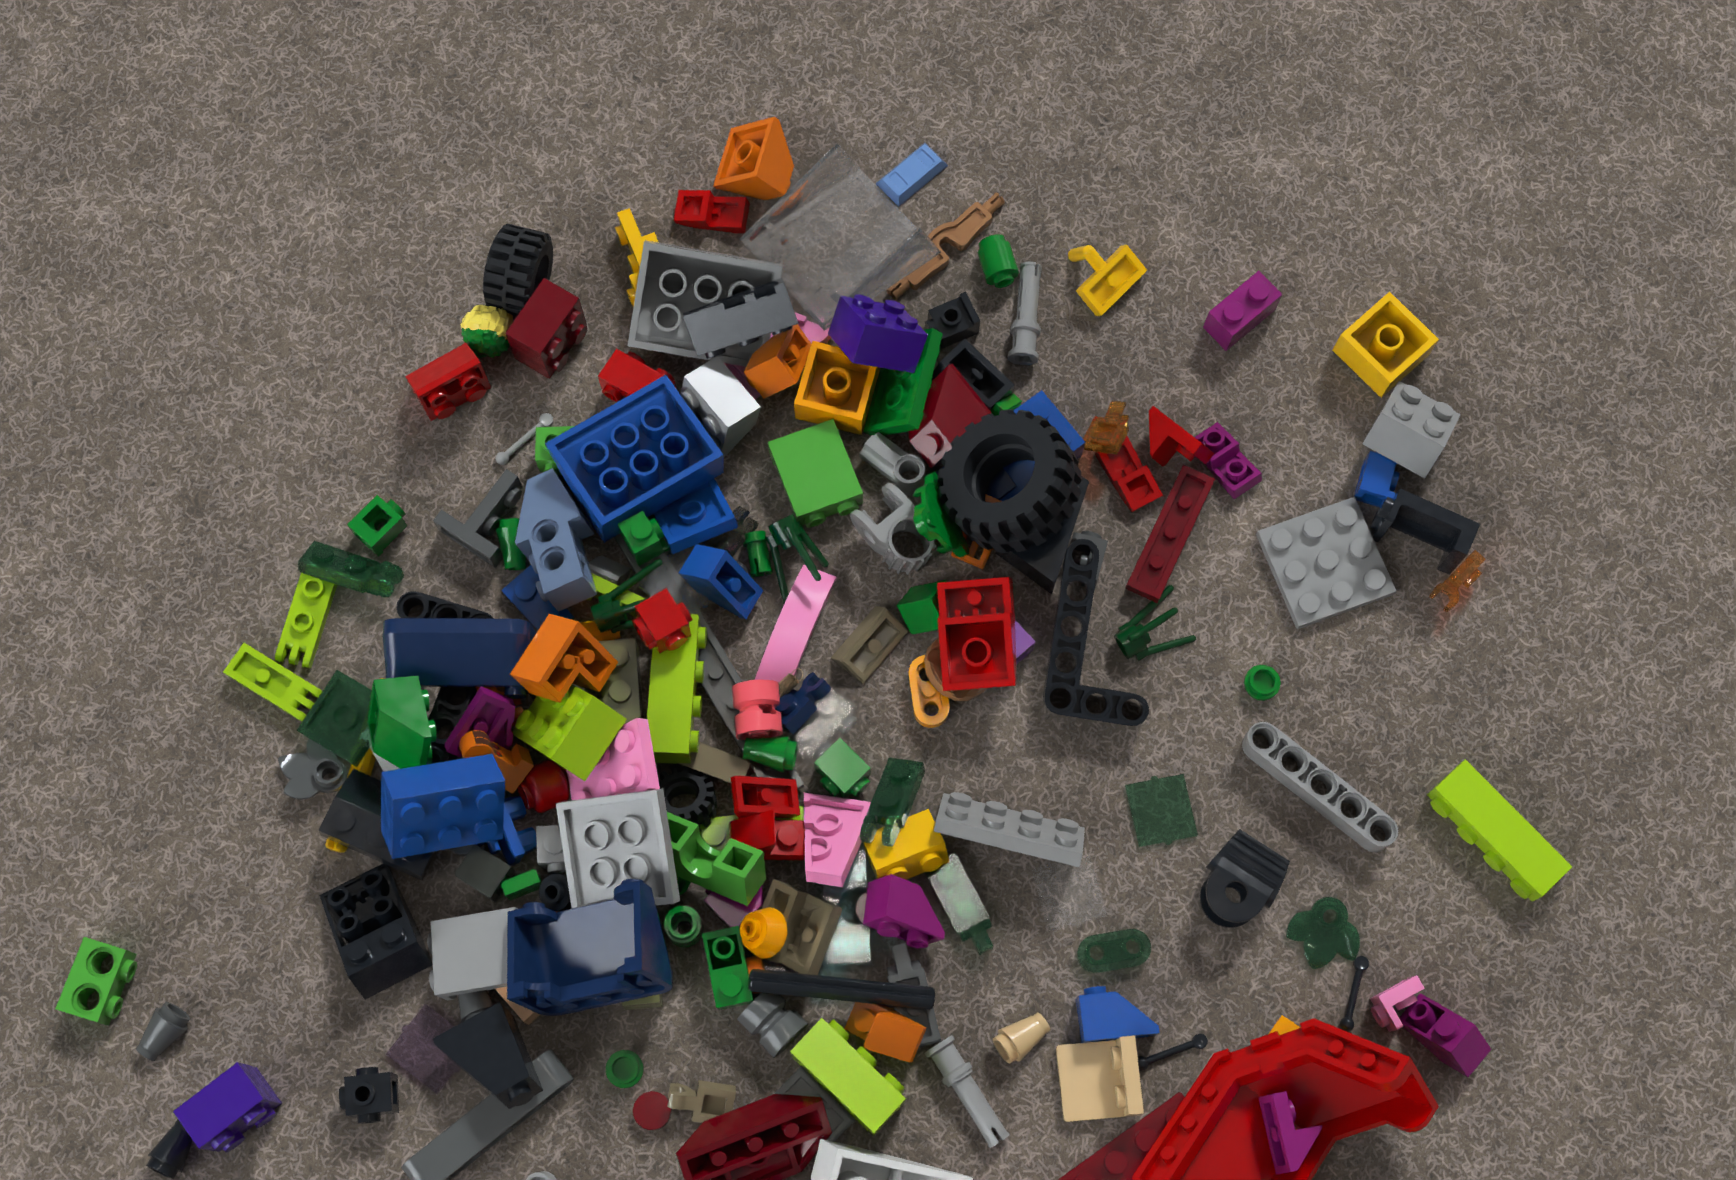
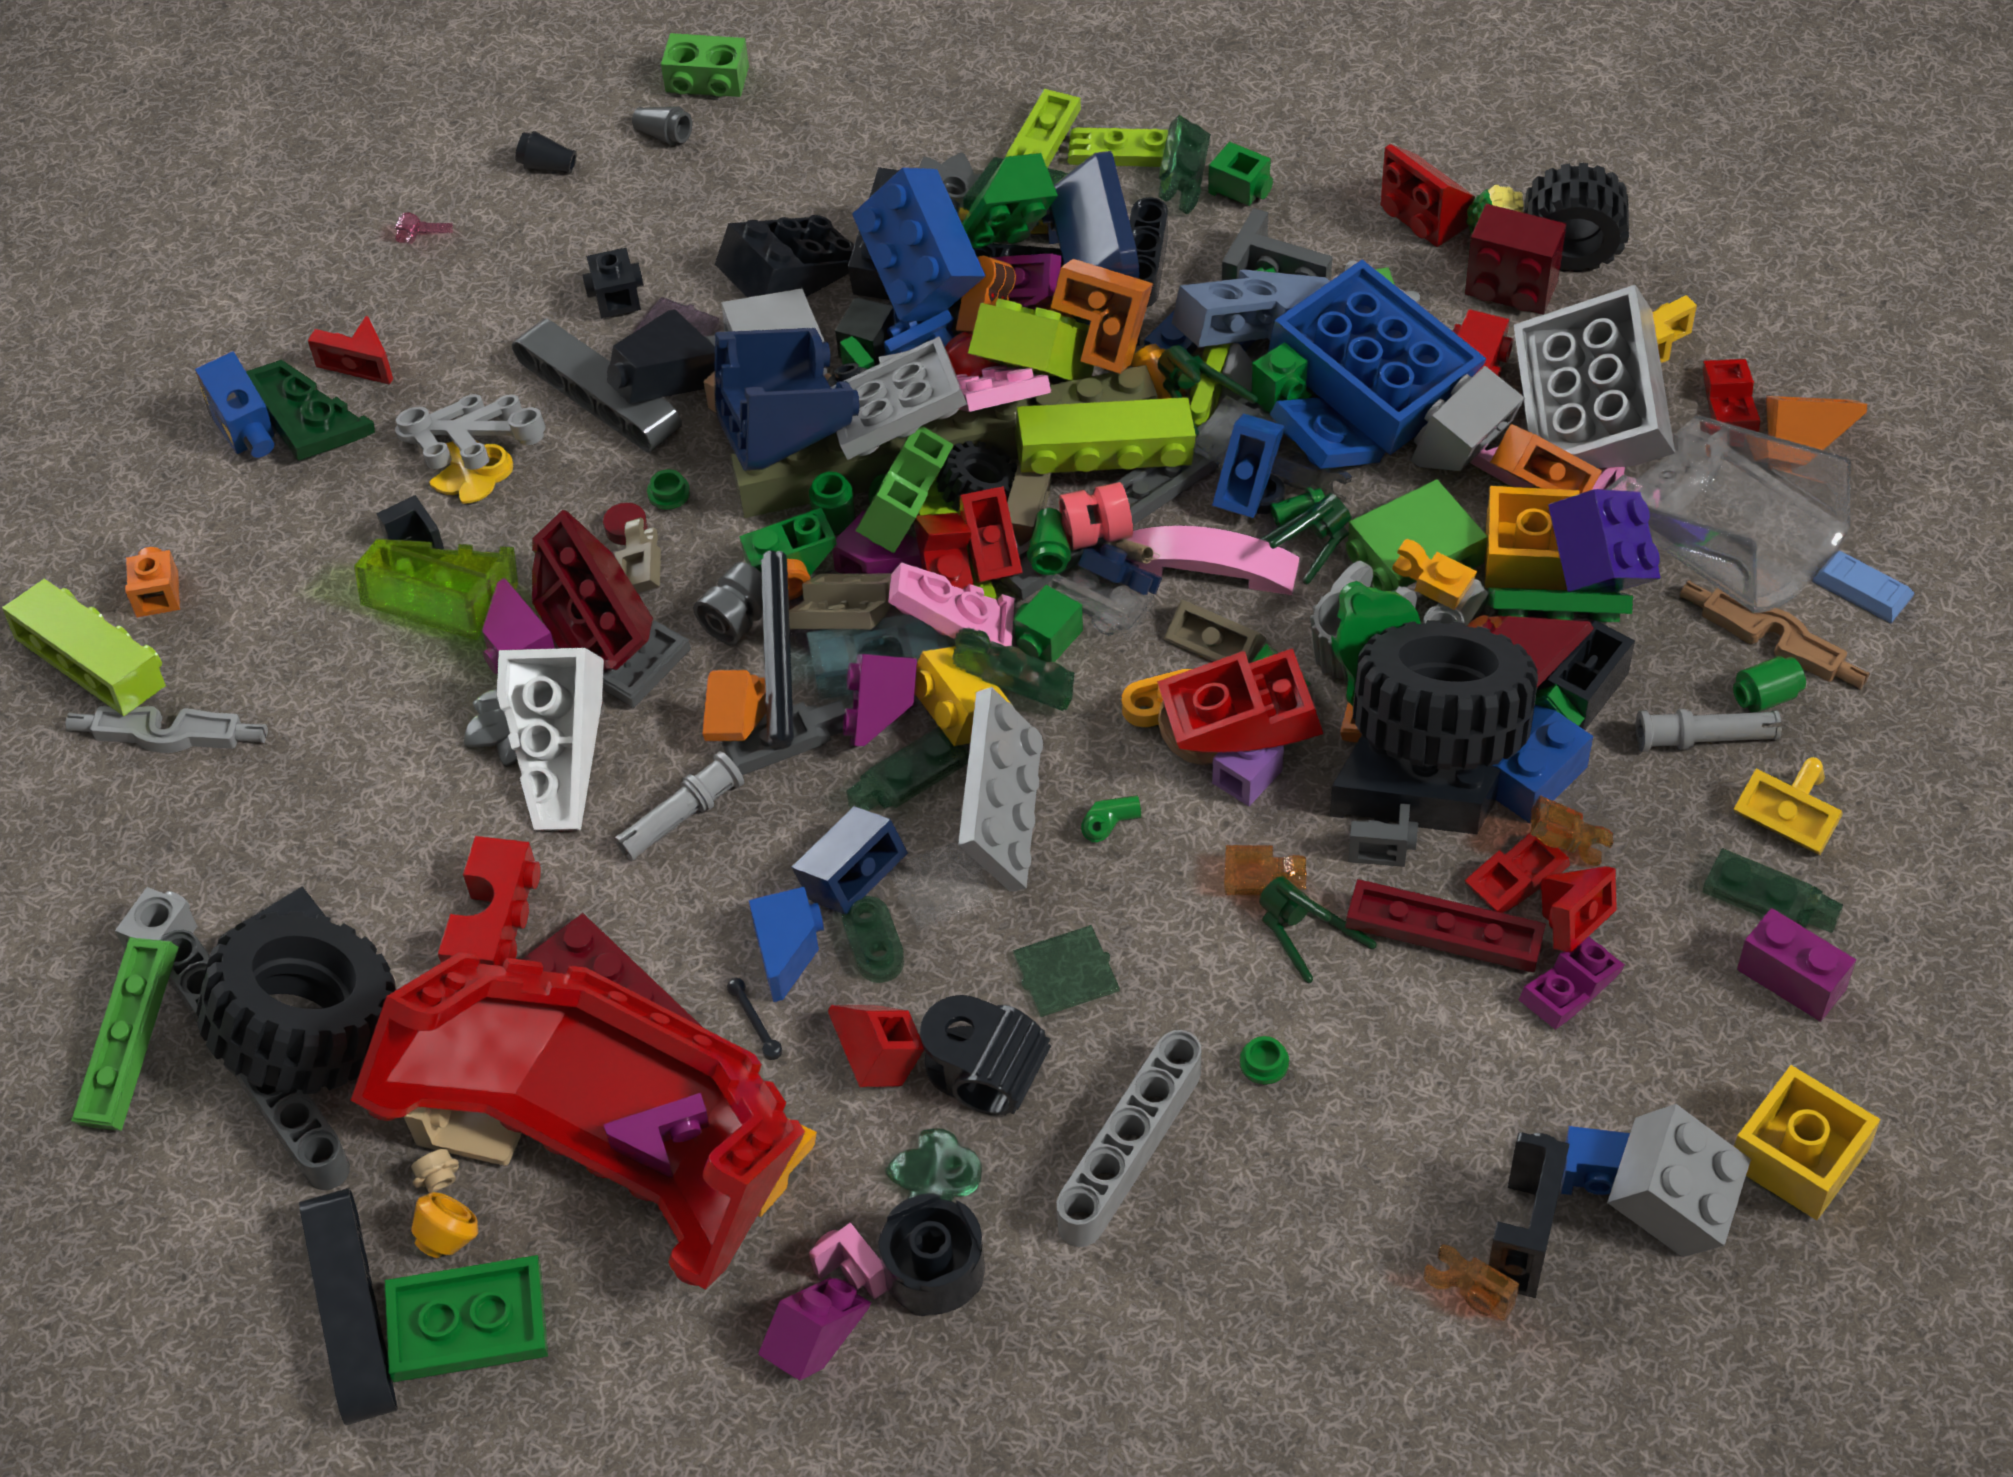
camera: 85 degrees right, 20 degrees down
(228, 1108) = (586, 172): dark purple brick -> none
(662, 622) = (1173, 391): red brick -> none
(740, 318) = (1578, 404): wedge -> none
(764, 932) = (832, 562): light orange cone -> none
(849, 1075) = (667, 674): lime brick -> none
(871, 461) = (1435, 577): none -> light orange plate
(965, 325) = (1667, 650): black brick -> none
(1020, 1037) = (749, 850): tan cone -> none
(1028, 757) = (1106, 814): none -> green arm
(1049, 958) = (850, 859): none -> dark blue brick
(1076, 646) = (1205, 823): black beam -> none
(1099, 1080) = (708, 940): tan bracket -> none
(1101, 655) = (1254, 867): none -> clear orange plate
(1171, 313) = (1762, 888): none -> clear green hinge
(1215, 958) = (877, 1042): none -> red slope
(1325, 562) = (1452, 1119): light grey plate -> none
(1360, 964) = (816, 1215): black hinge -> none
(1408, 921) = (932, 1254): none -> black brick
(1498, 831) = (1110, 1369): lime brick -> none

